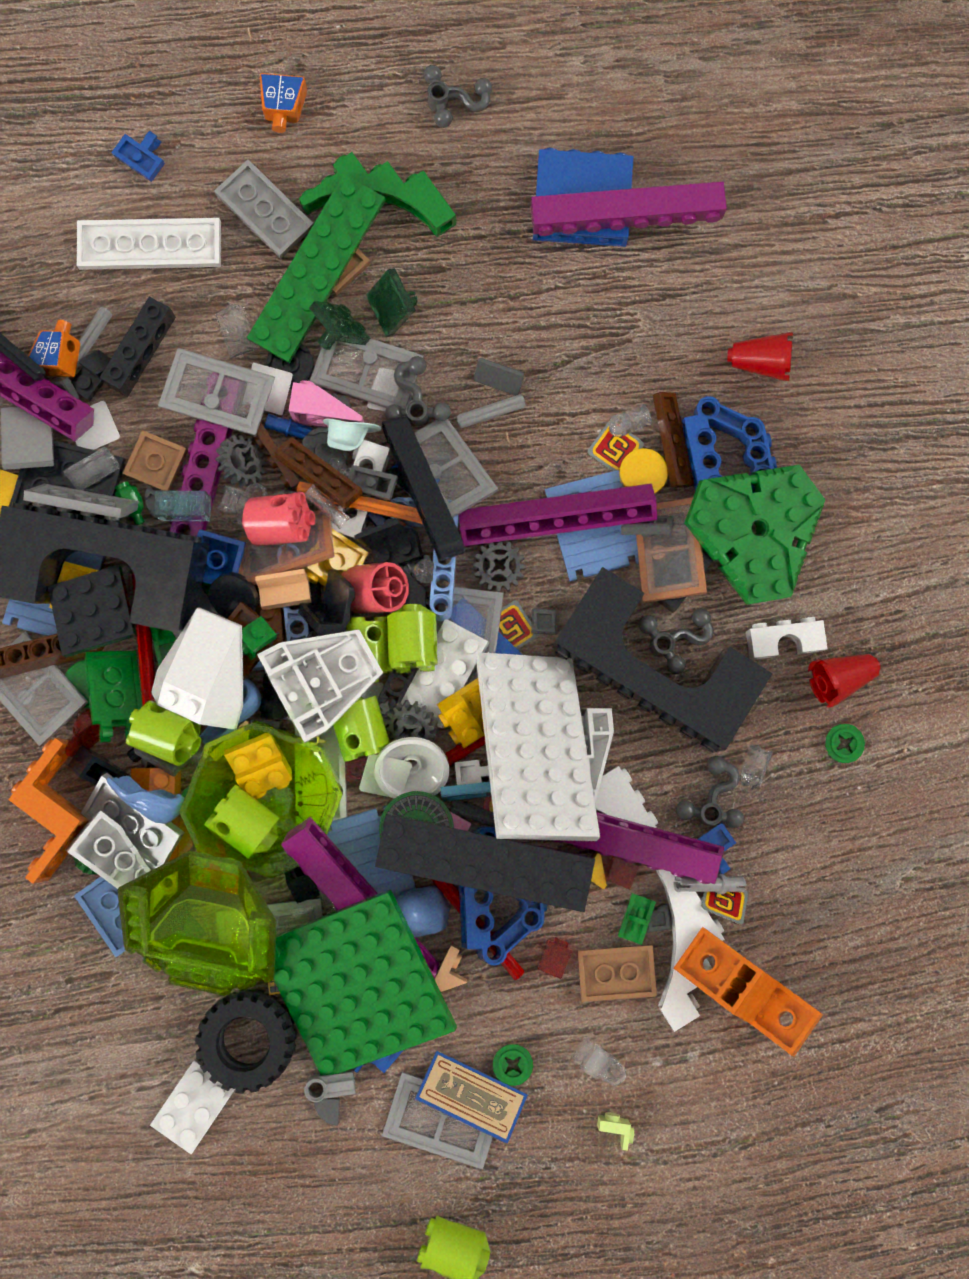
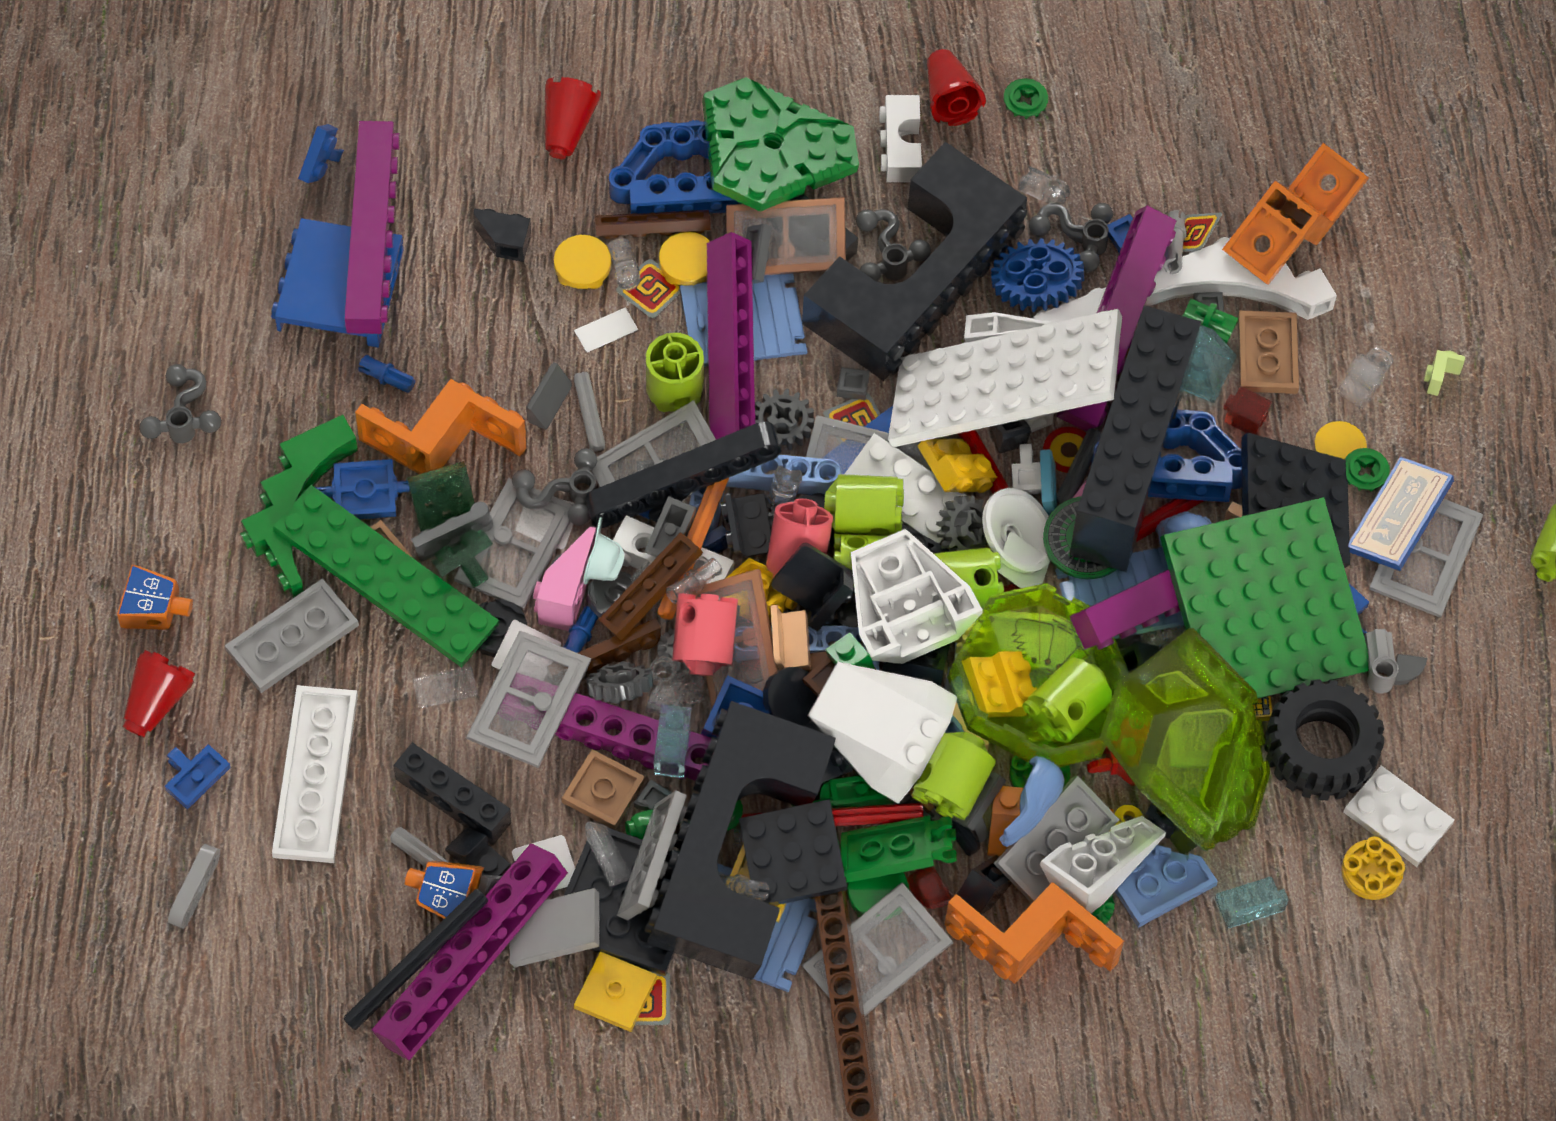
camera: 85 degrees left, 20 degrees down
(48, 169) = (194, 886): none -> light grey beam
(60, 572) = (746, 887): none -> clear pin
(104, 986) = (1251, 902): none -> clear light blue panel
(143, 1086) = (1372, 869): none -> yellow tile
(203, 112) = (154, 692): none -> red cone
(365, 316) = (448, 533): none -> dark grey plate
(397, 244) = (366, 488): none -> blue plate
(451, 292) = (442, 428): none -> orange bracket
(481, 1002) = (1287, 474): none -> black plate
(504, 247) = (386, 374): none -> blue axle
(524, 470) = (674, 371): none -> lime cylinder
(540, 1039) = (1339, 439): none -> yellow sticker
(571, 416) = (606, 330): none -> white sticker
(602, 916) = (1210, 365): none -> clear light blue slope
(628, 387) = (582, 262): none -> yellow tile
(645, 321) = (503, 233): none -> black slope
(650, 781) = (1037, 274): none -> blue gear
(700, 159) = (319, 151): none -> blue plate

